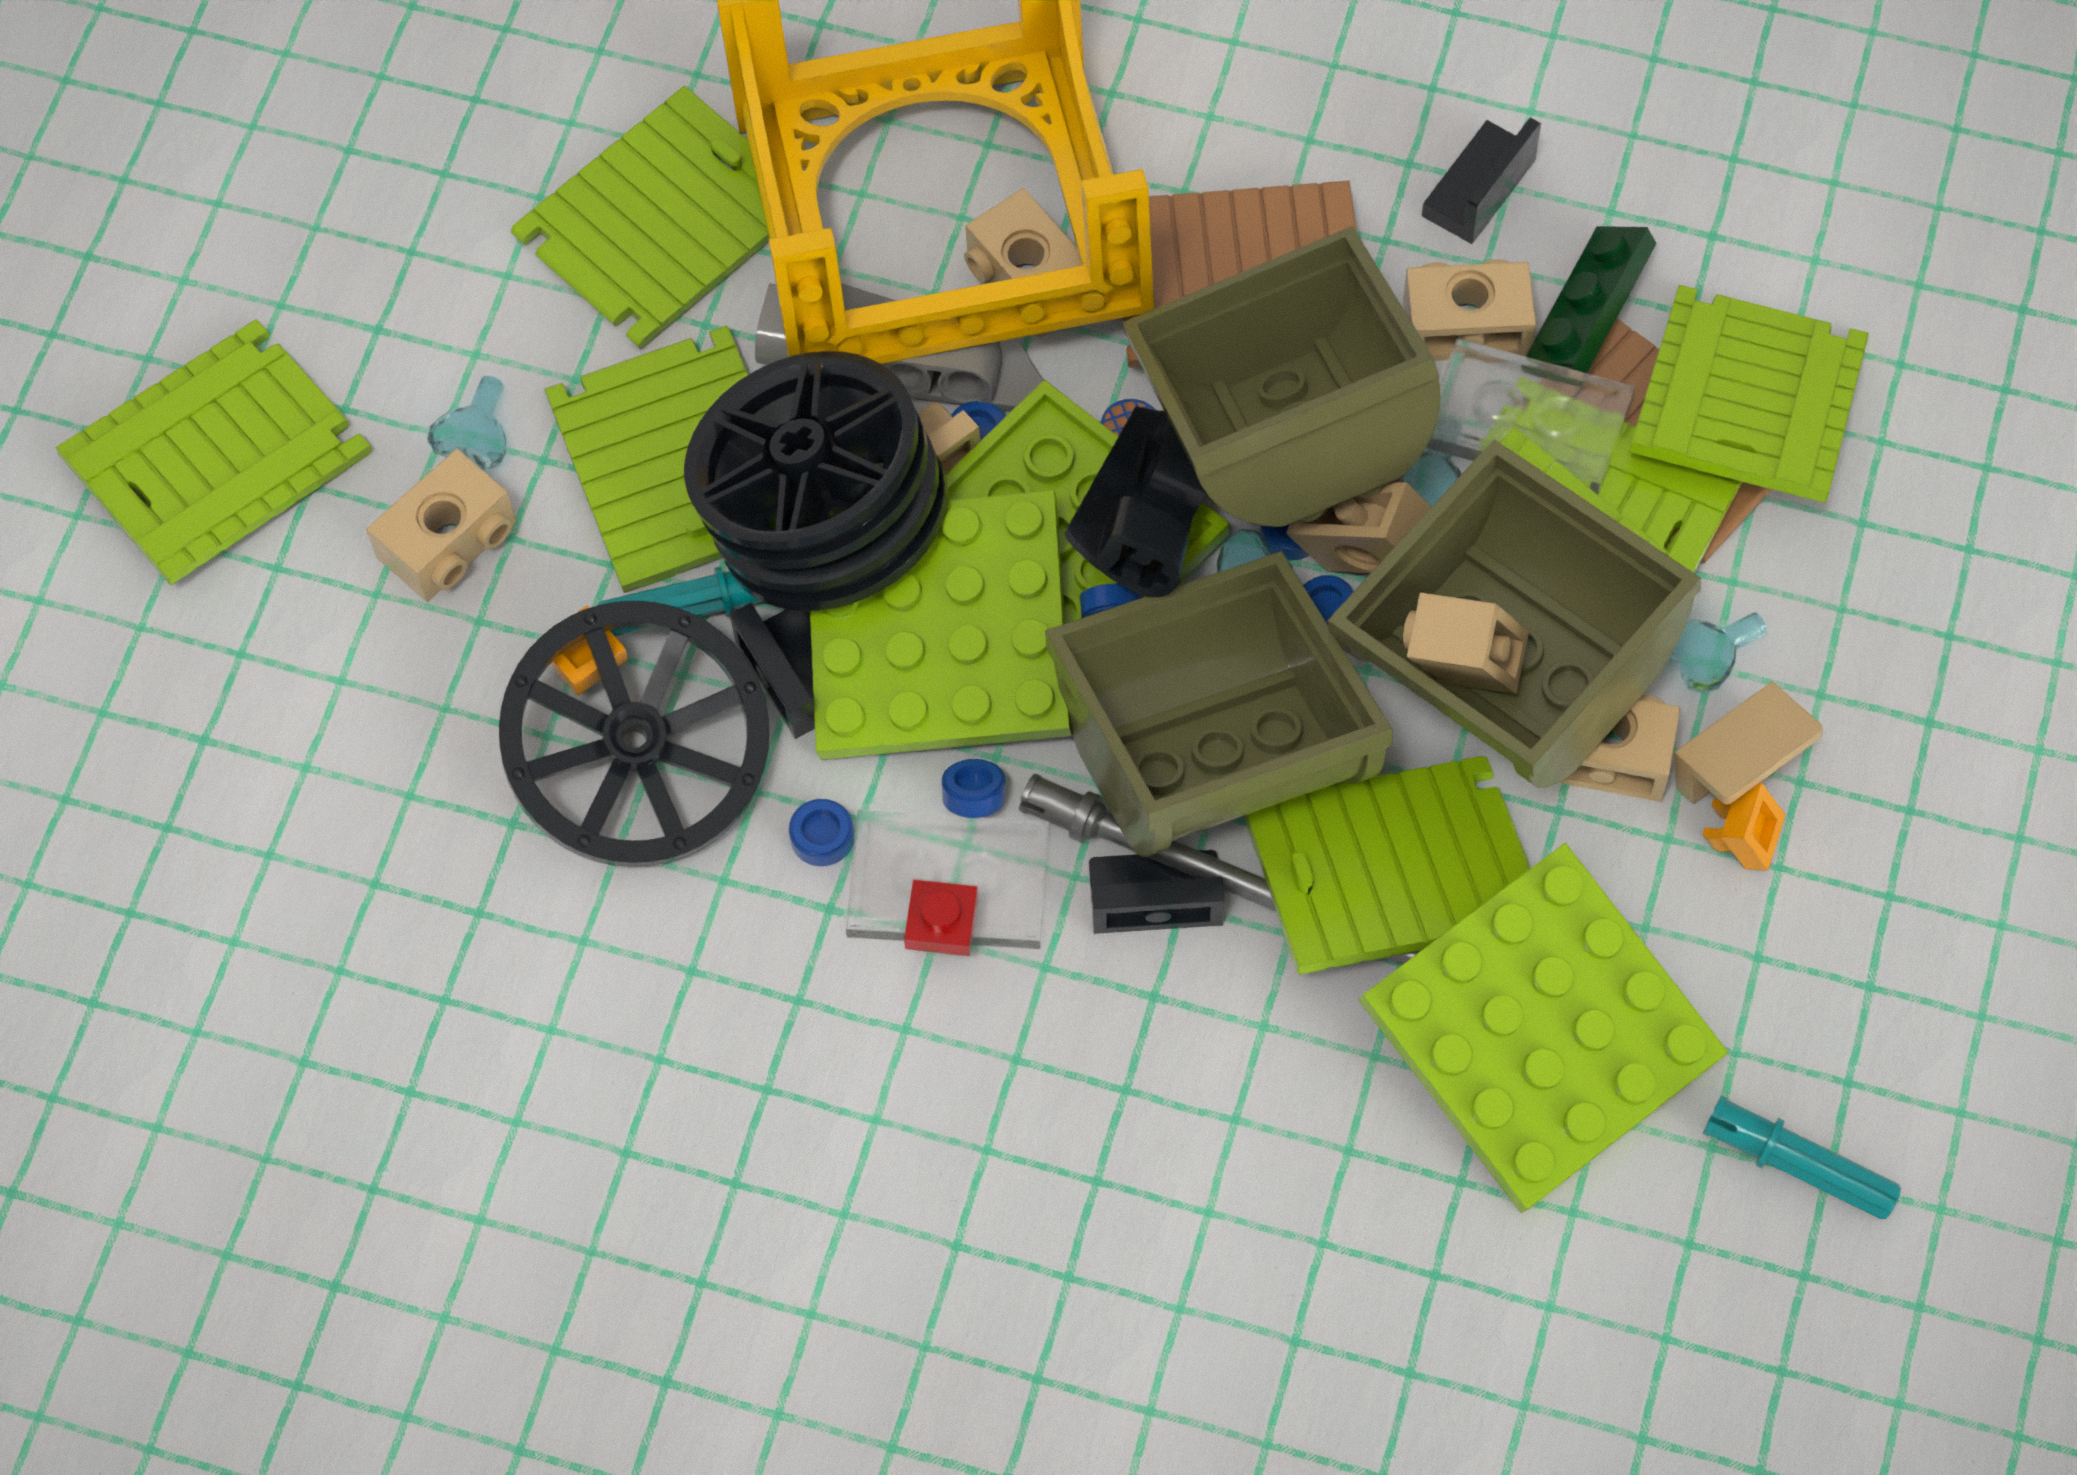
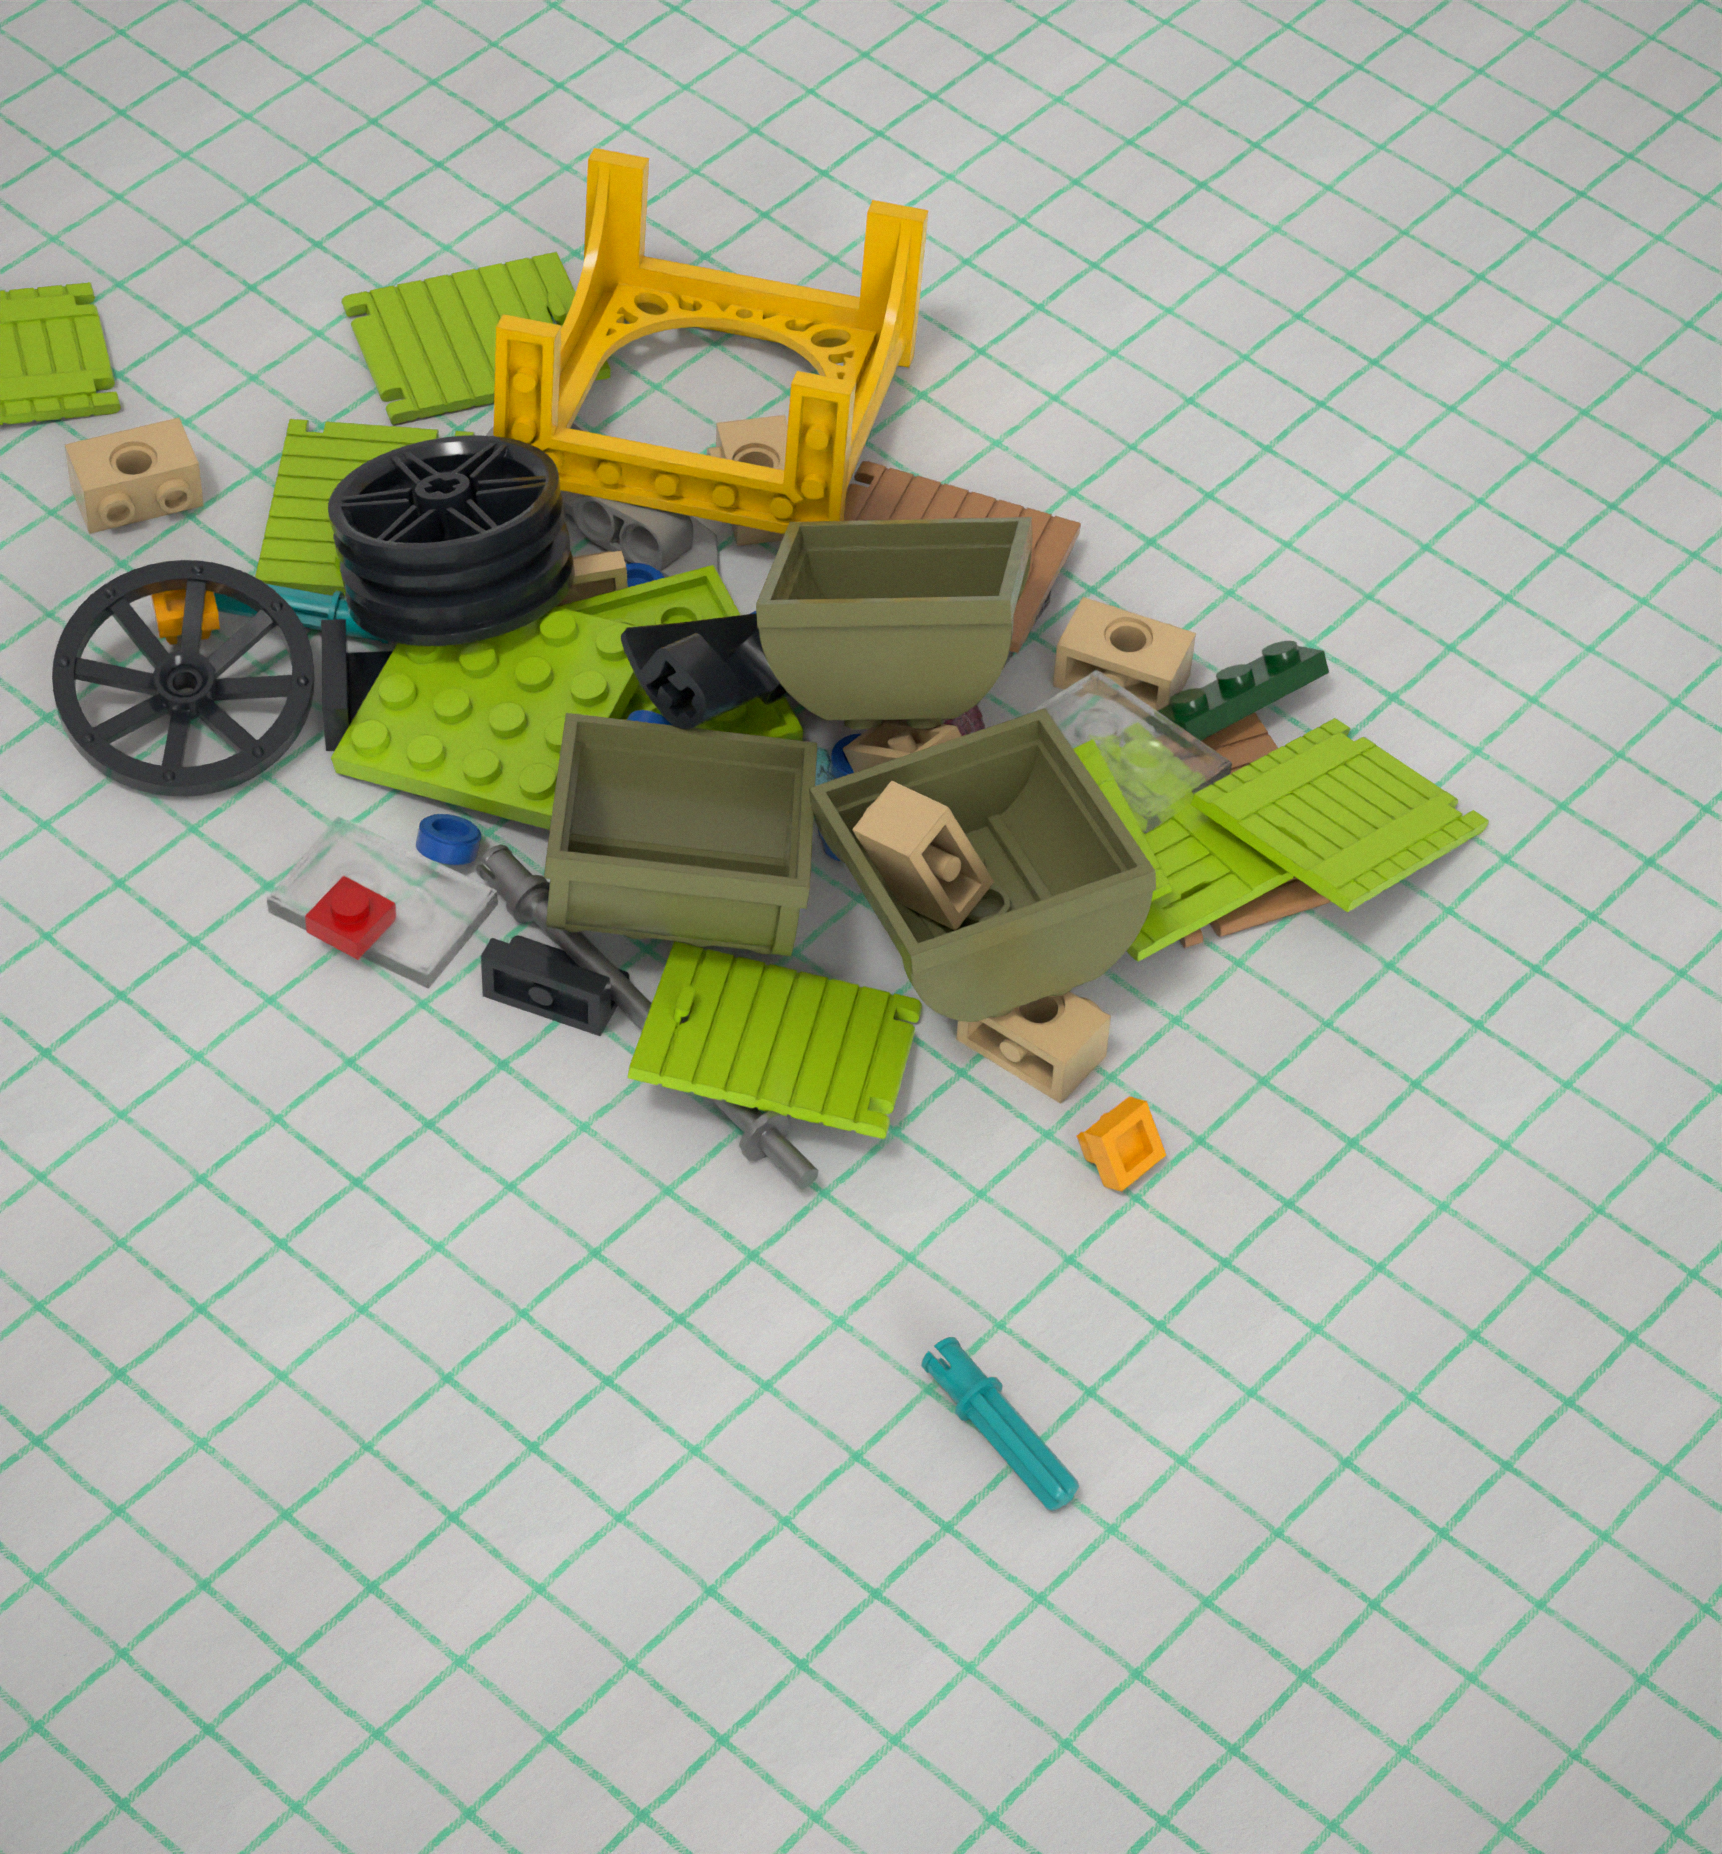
camera: 20 degrees right, 15 degrees down
(473, 428) = (211, 424): clear light blue rock -> none
(821, 832) = (296, 822): blue tile -> none
(1482, 179) = (1207, 571): black panel -> none
(1543, 1027) = (825, 1216): lime plate -> none
(1709, 651) = (1176, 1000): clear light blue rock -> none
(1745, 746) = (1152, 1071): tan panel -> none

